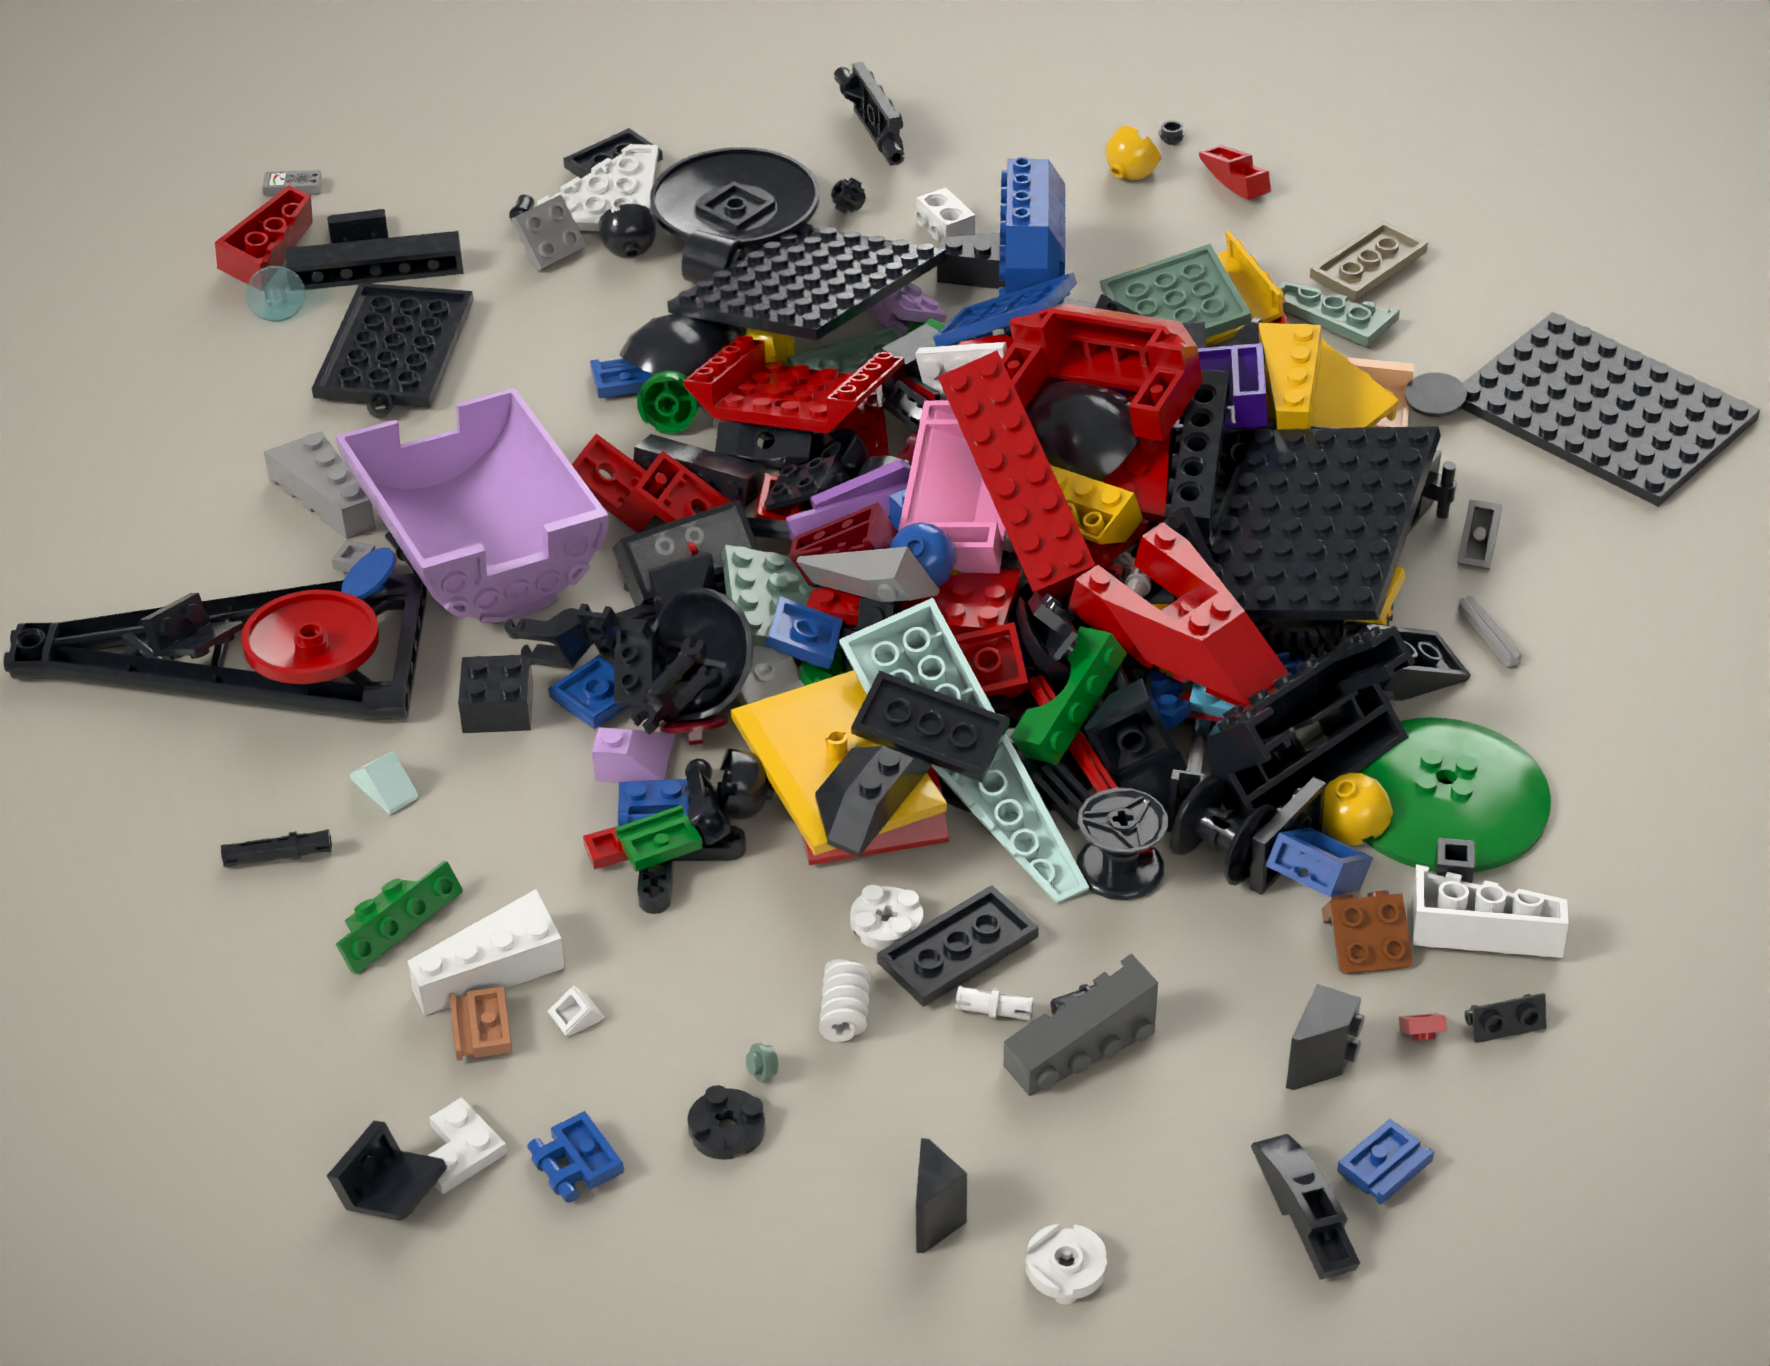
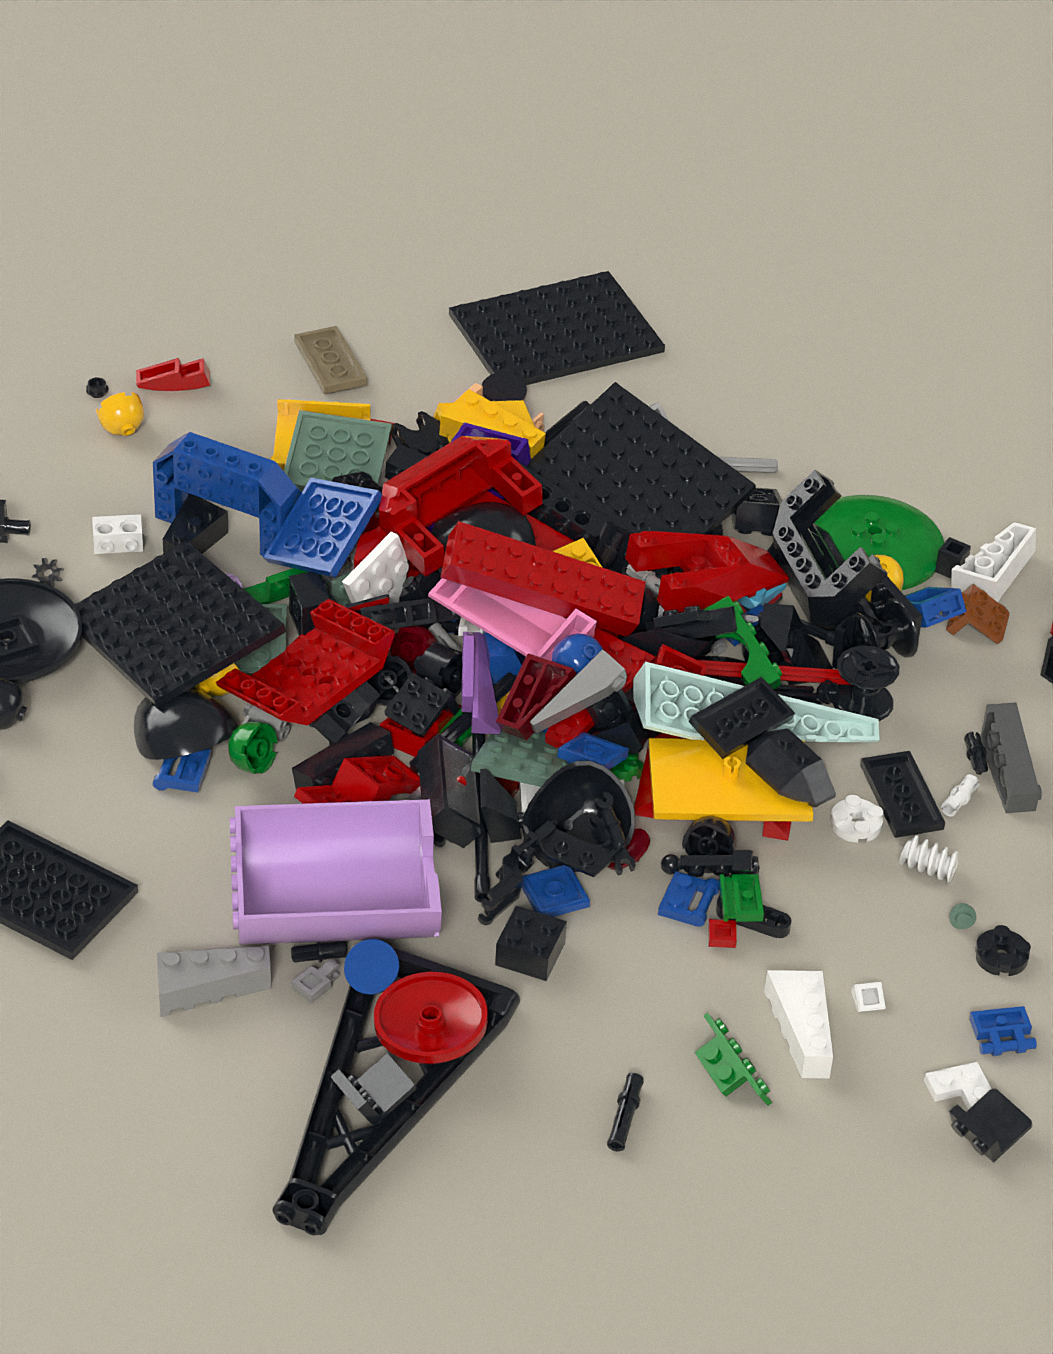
camera: 70 degrees left, 0 degrees up
(379, 399) = (120, 918): black hinge -> none
(386, 783) = (581, 1033): light aqua slope -> none
(480, 1023) = (861, 1045): nougat plate -> none
(631, 755) = (629, 895): lavender slope -> none
(709, 253) = (85, 669): black piece -> none
(1333, 312) = (387, 394): sand green wing -> none

